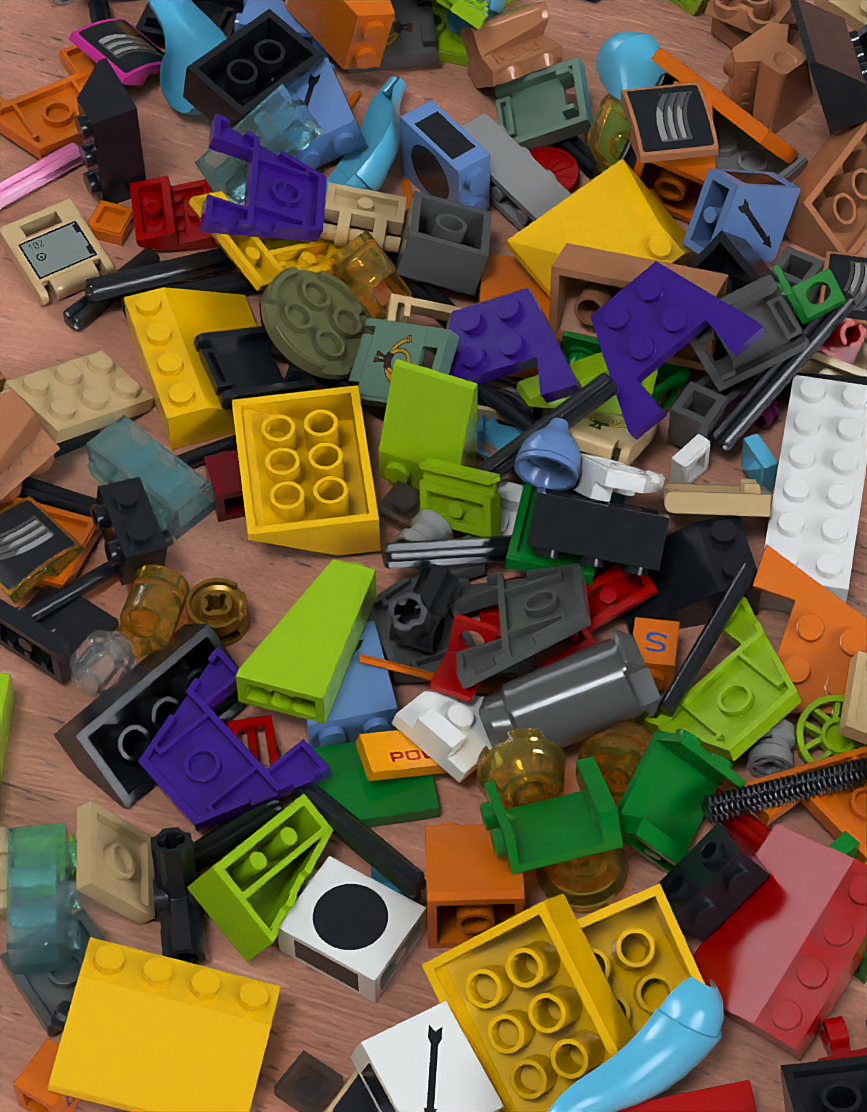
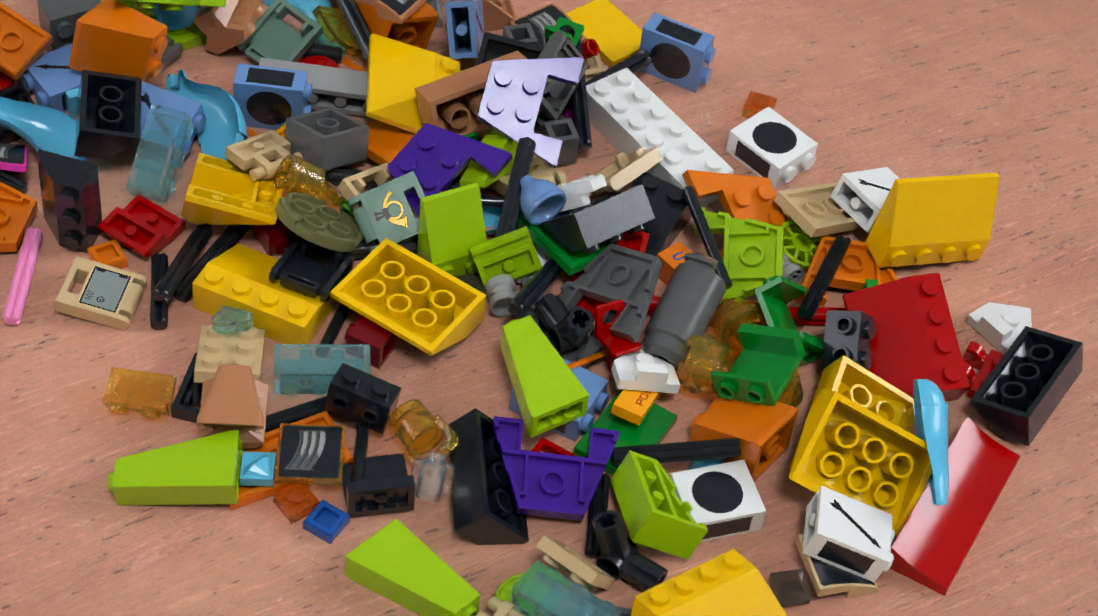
camera: 55 degrees left, 5 degrees down
(119, 360) = (231, 319): none -> clear light blue tile
(220, 605) = (448, 403): pearl gold wheel -> none
(280, 193) = (215, 163): dark purple wing -> none
(690, 461) = (578, 163): white tile -> none
(759, 462) = (608, 144): medium azure tile -> none

